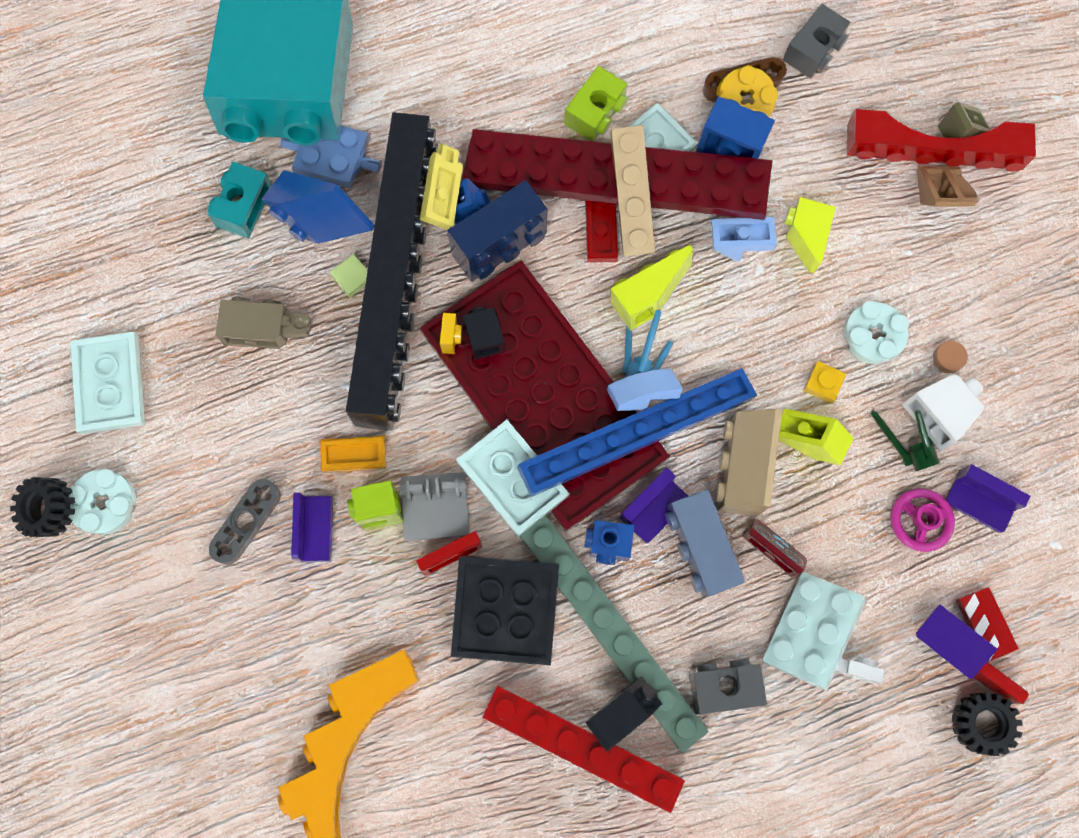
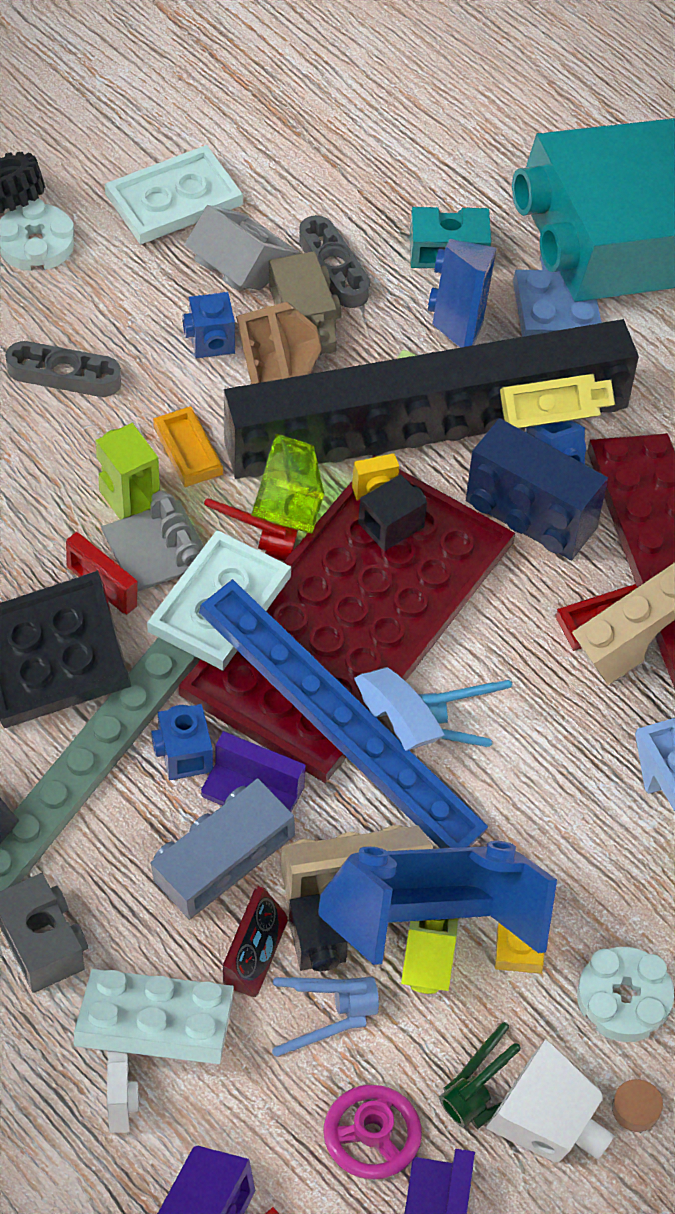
camera: 70 degrees right, 20 degrees down
(186, 352) = (236, 247): none -> light grey slope
(213, 281) = (335, 246): none -> dark grey beam
(254, 399) = (210, 325): none -> blue brick
(298, 358) = (278, 343): none -> medium nougat slope
(312, 528) = (71, 425): dark purple panel -> none
(436, 395) = (290, 486): none -> clear neon green slope
(464, 421) = (275, 539): none -> red plant
(650, 289) = (553, 689): neon yellow slope -> none
(787, 505) = (314, 940): none -> black brick
(800, 460) = (436, 885): none -> blue windscreen
(835, 499) = (352, 996): none -> medium blue plant

